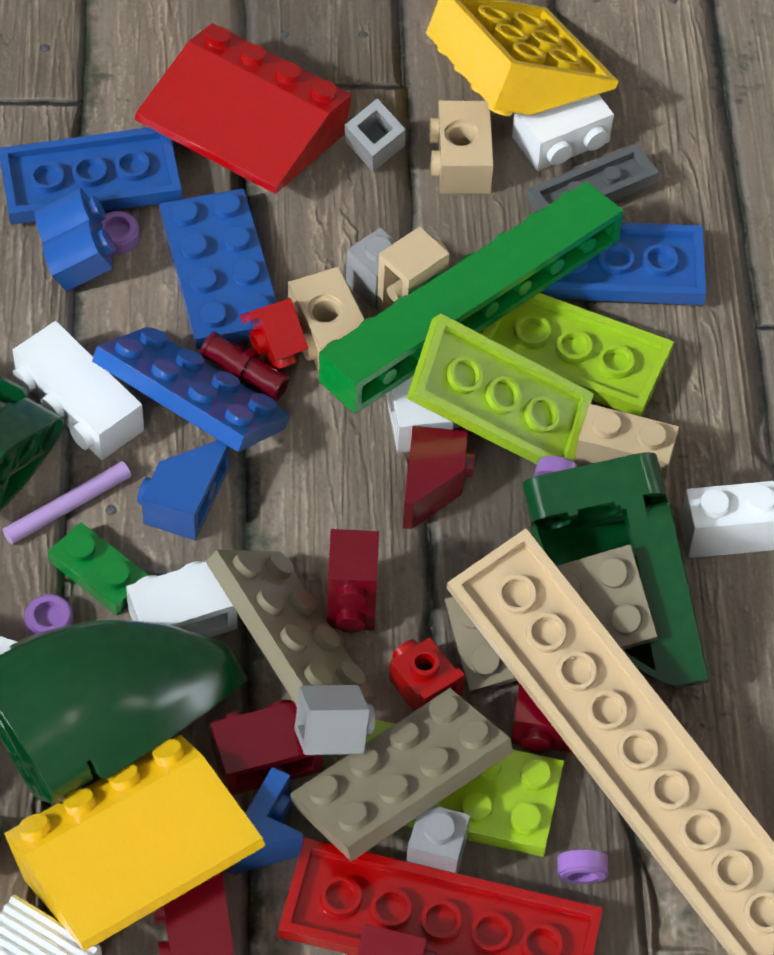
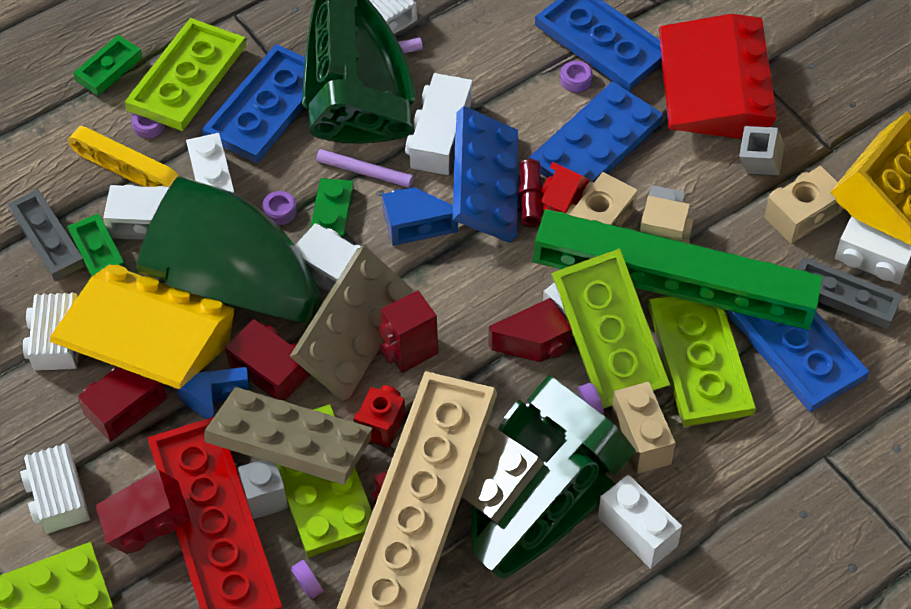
camera: 60 degrees right, 0 degrees up
(74, 238) = (543, 55): blue brick -> none
(333, 719) = (289, 372): light grey brick -> none

